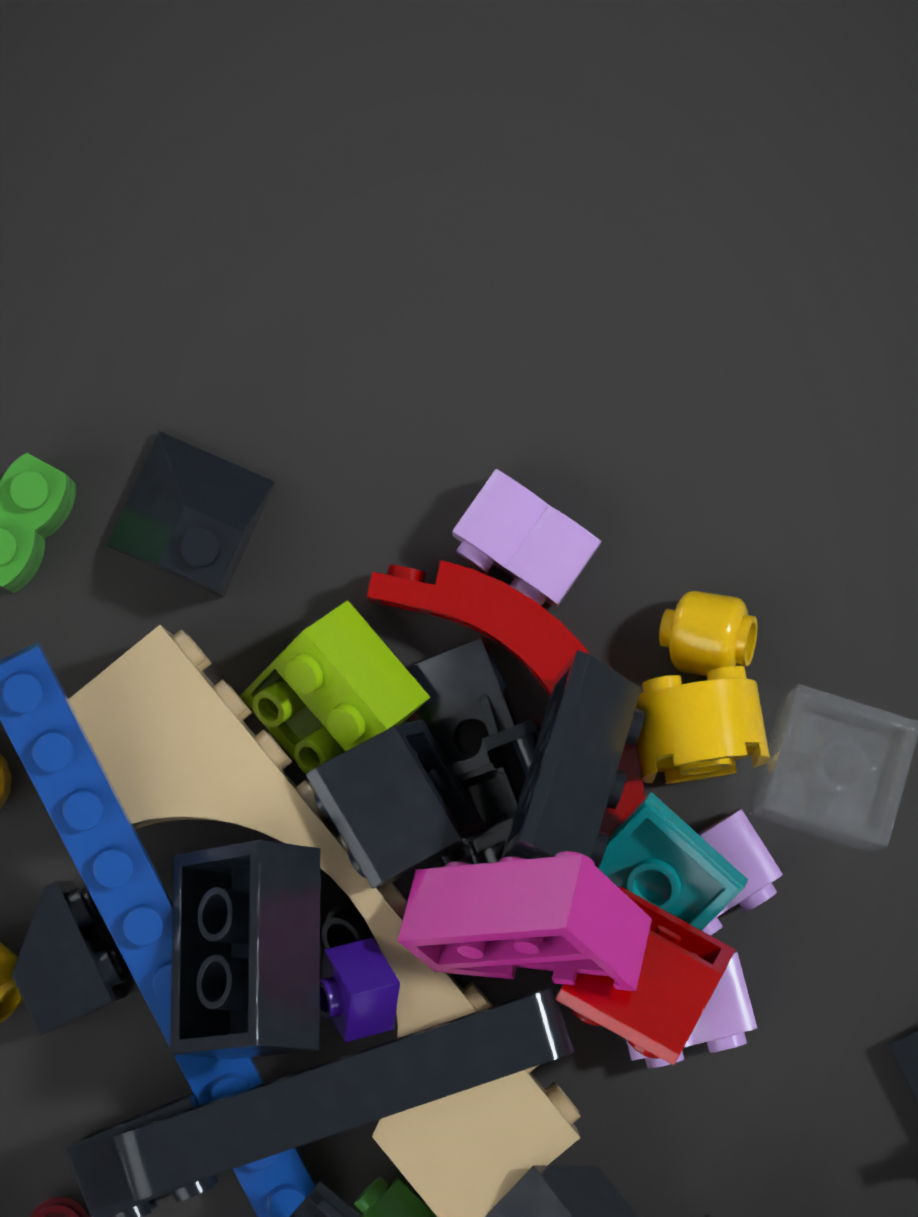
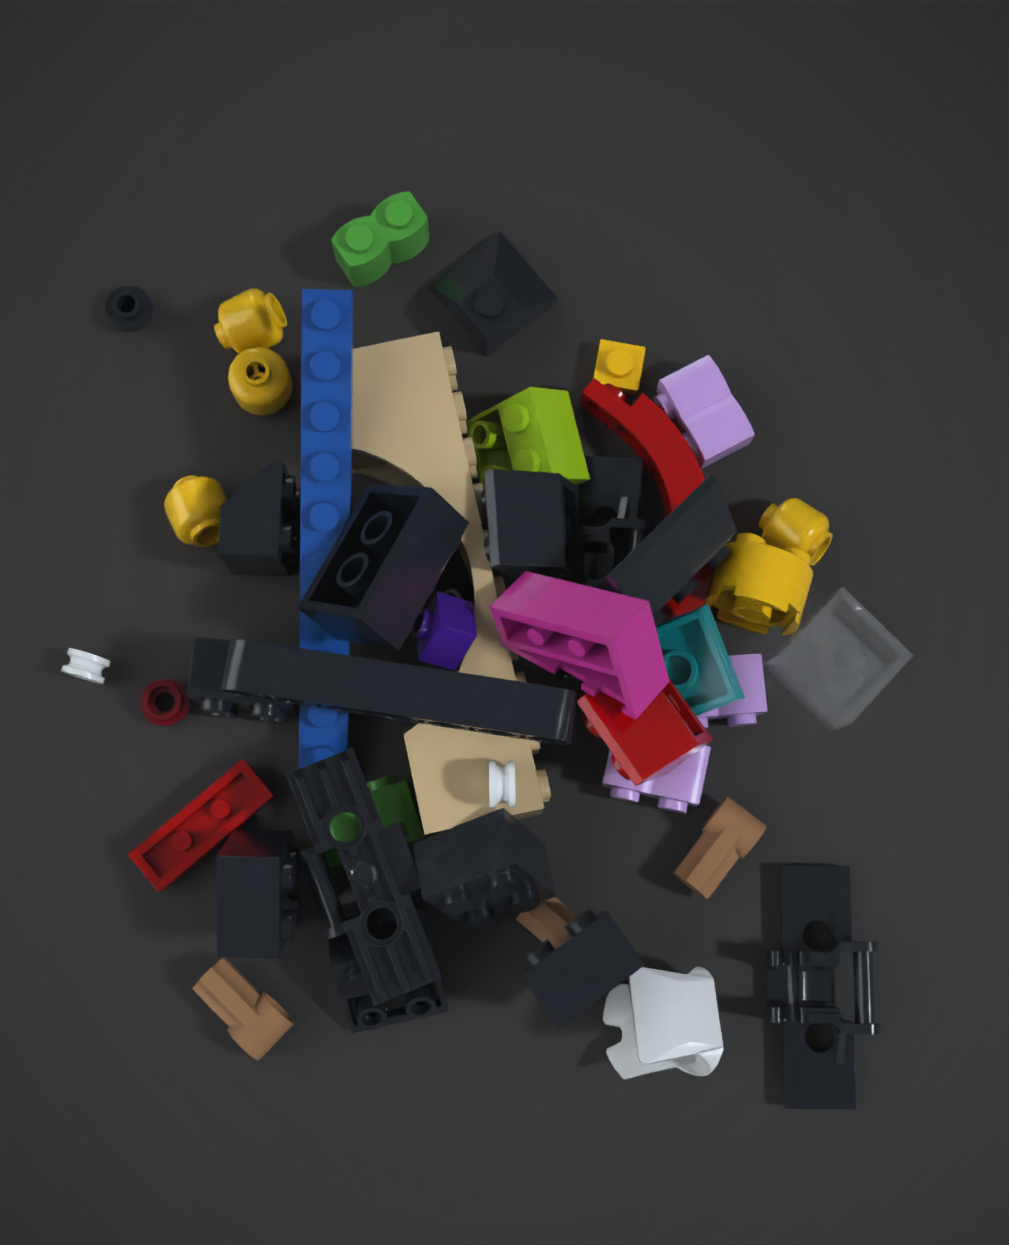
camera: 20 degrees right, 5 degrees down
(392, 531) = (620, 365): none -> yellow plate
(518, 1139) = (502, 784): none -> white bush
(808, 1045) = (725, 838): none -> medium nougat piece

